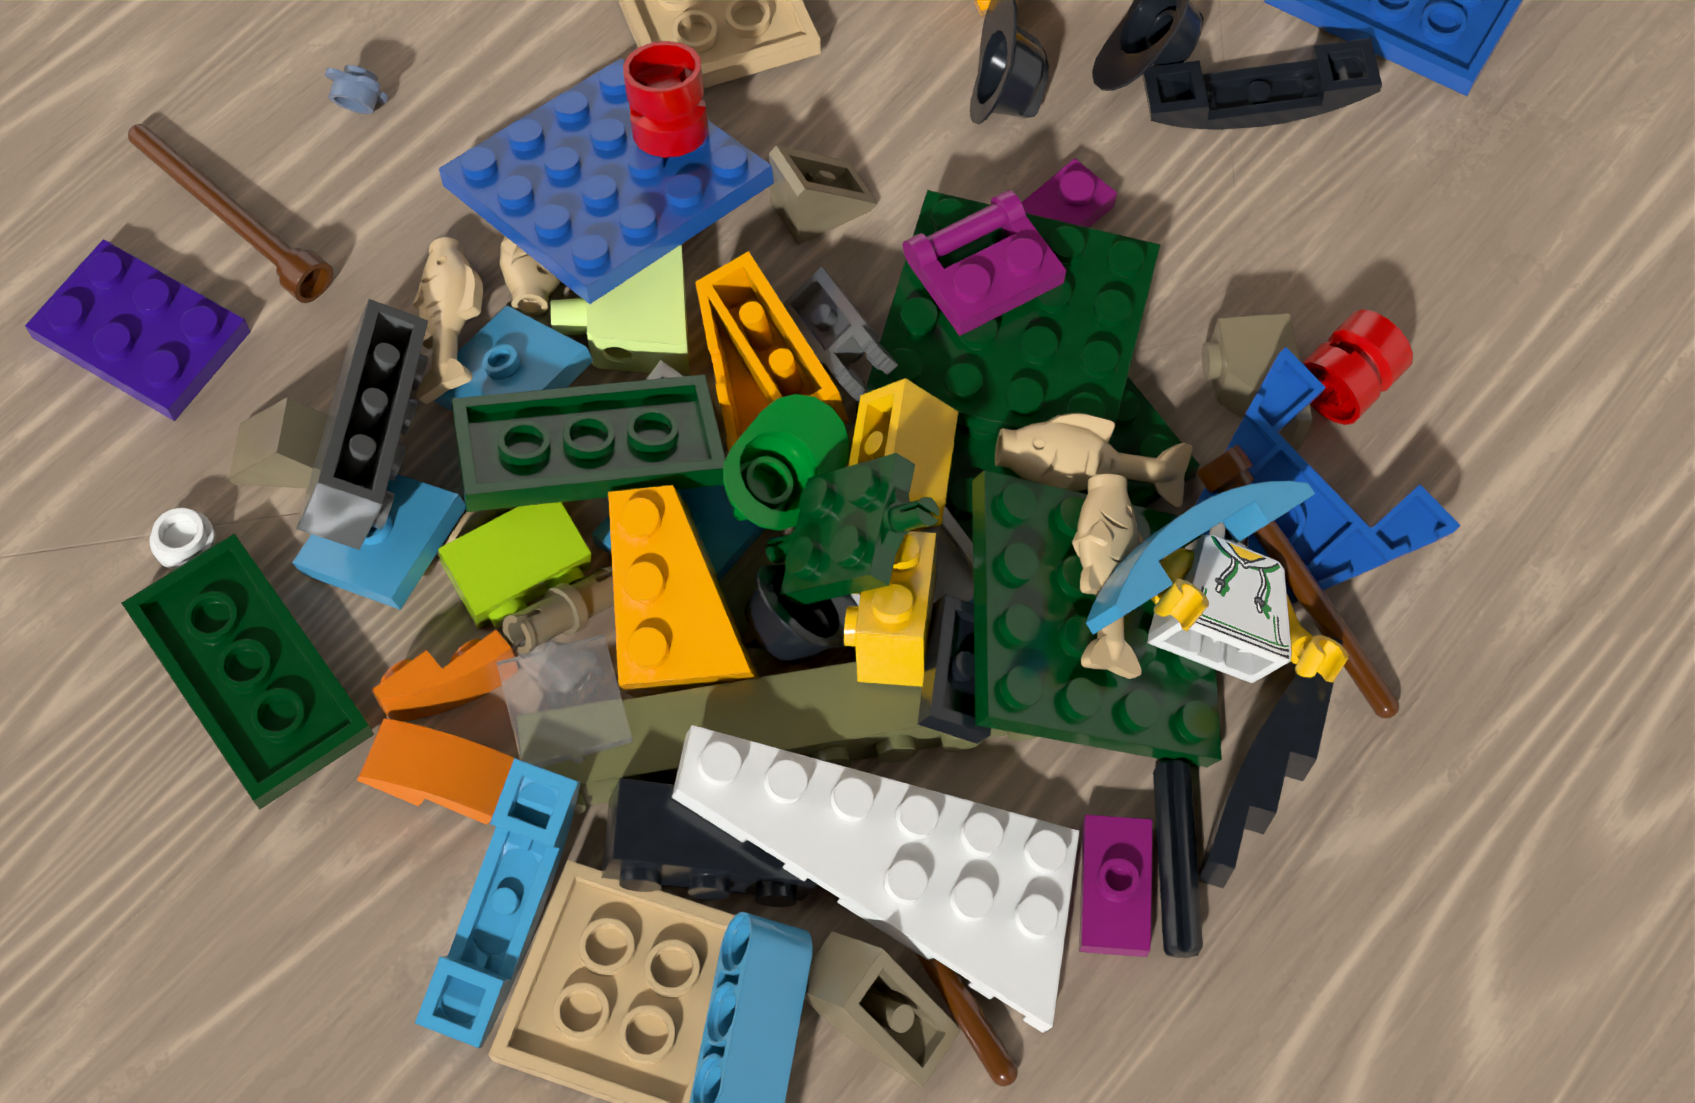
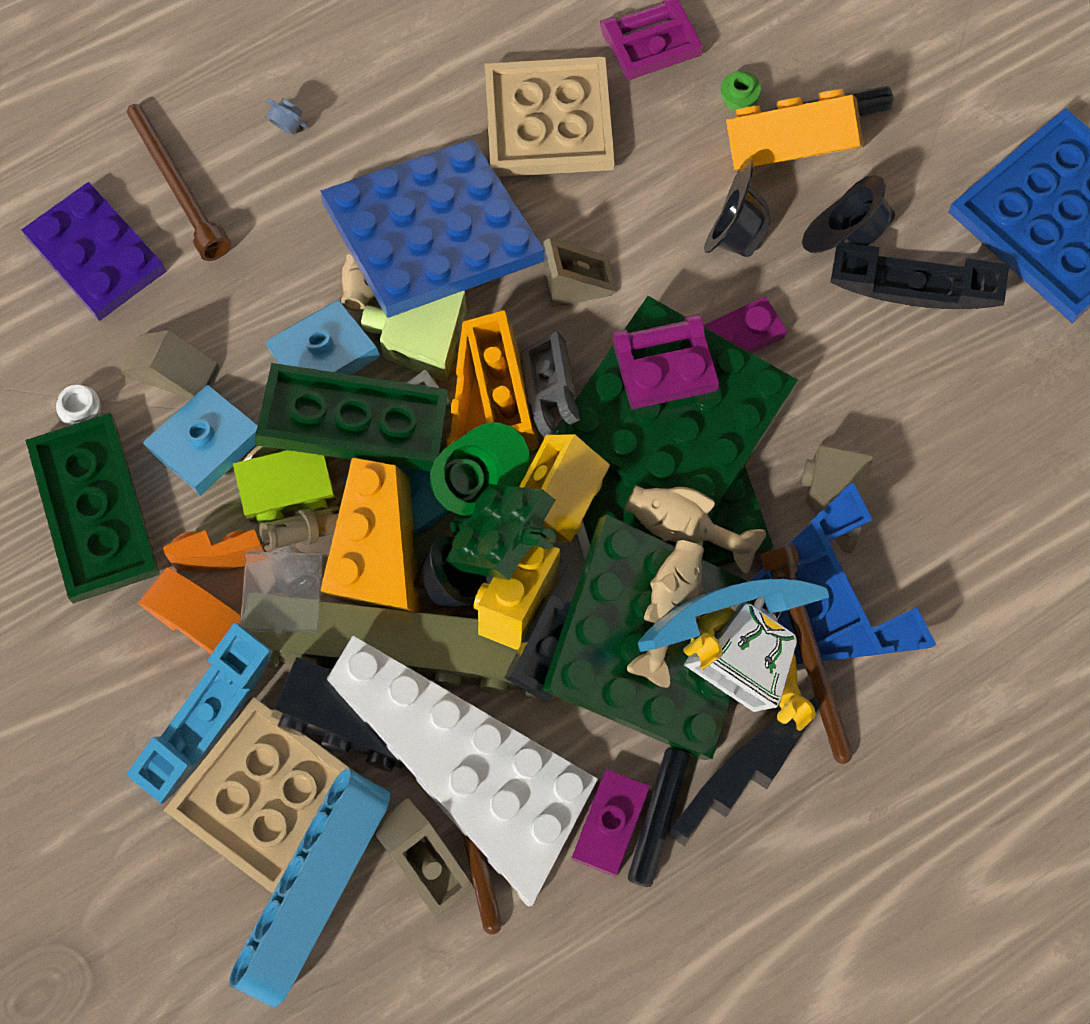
camera: 20 degrees right, 5 degrees up
(364, 427) = (211, 363): dark grey brick -> none
(446, 298) = (297, 287): tan animal -> none
(666, 98) = (482, 184): red wheel -> none
(1358, 365) = (911, 504): red wheel -> none

